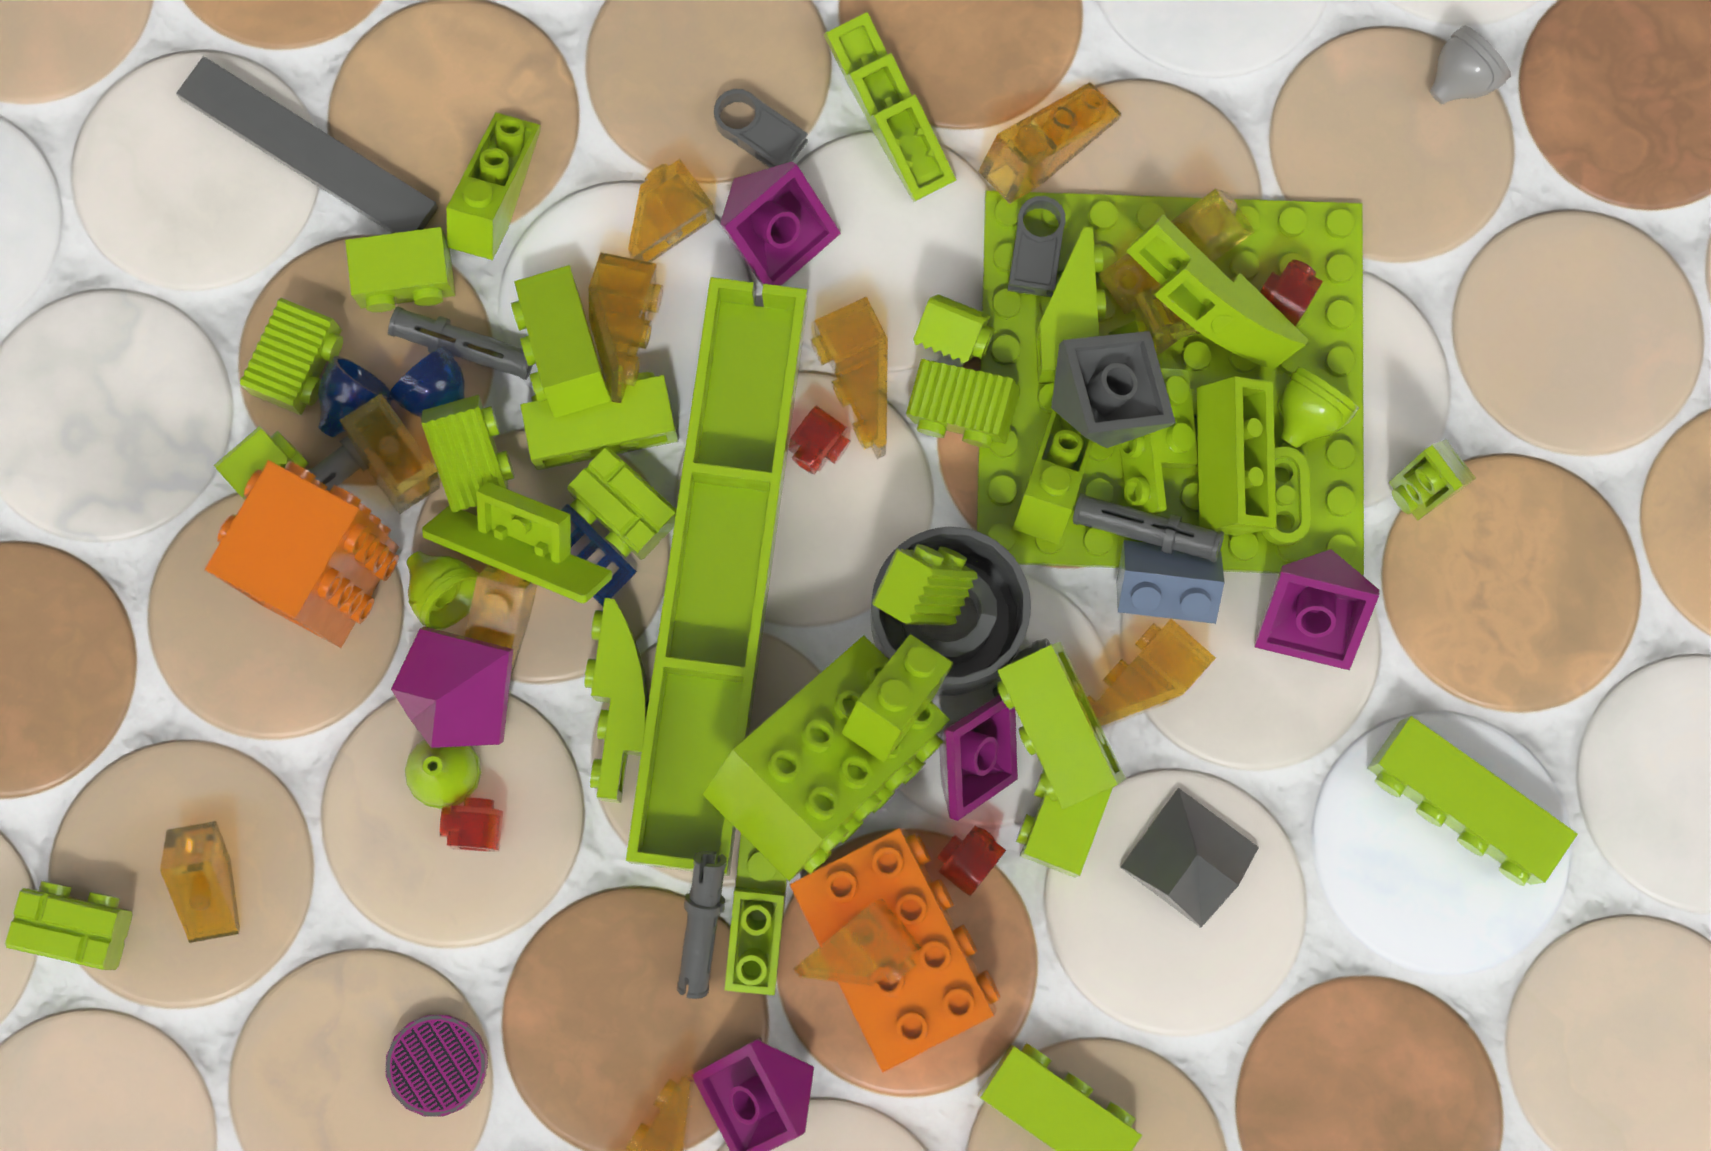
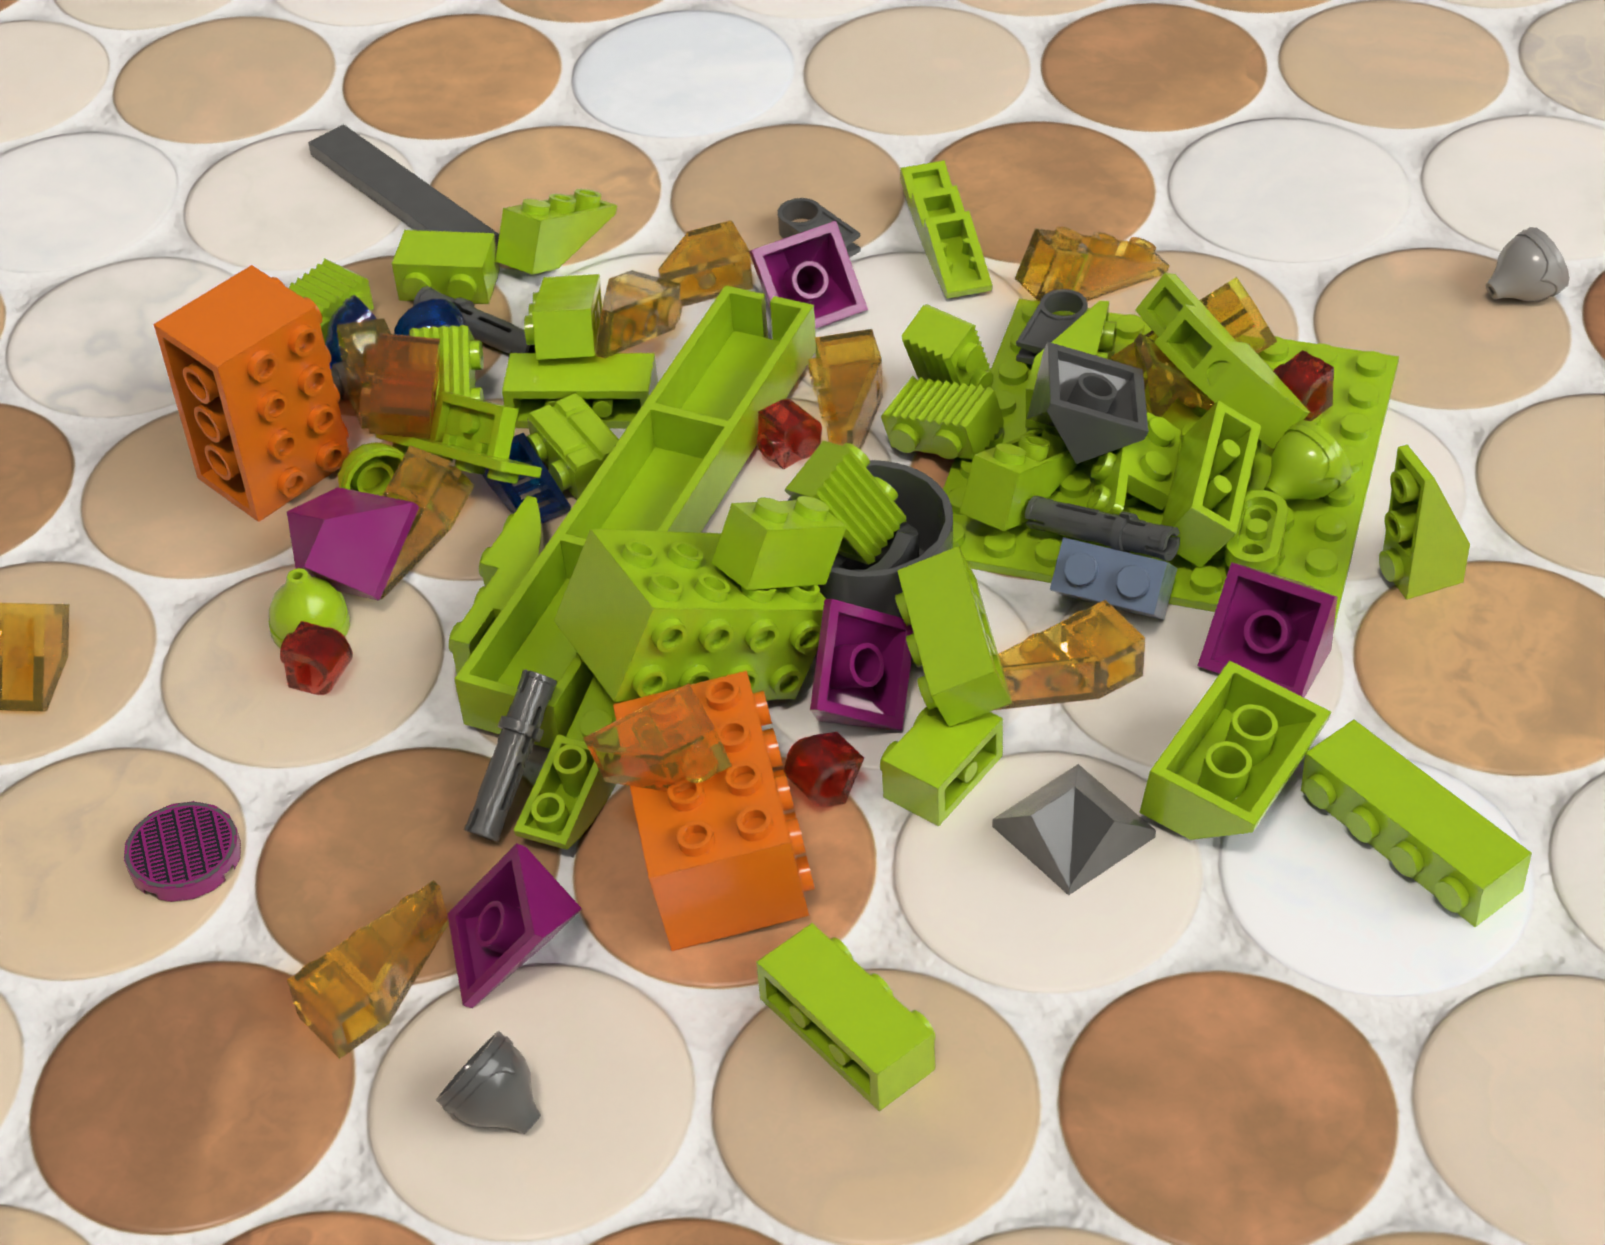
camera: 20 degrees right, 35 degrees down
(443, 503) = (402, 385): none -> clear orange brick
(1319, 777) = (1231, 756): none -> lime slope

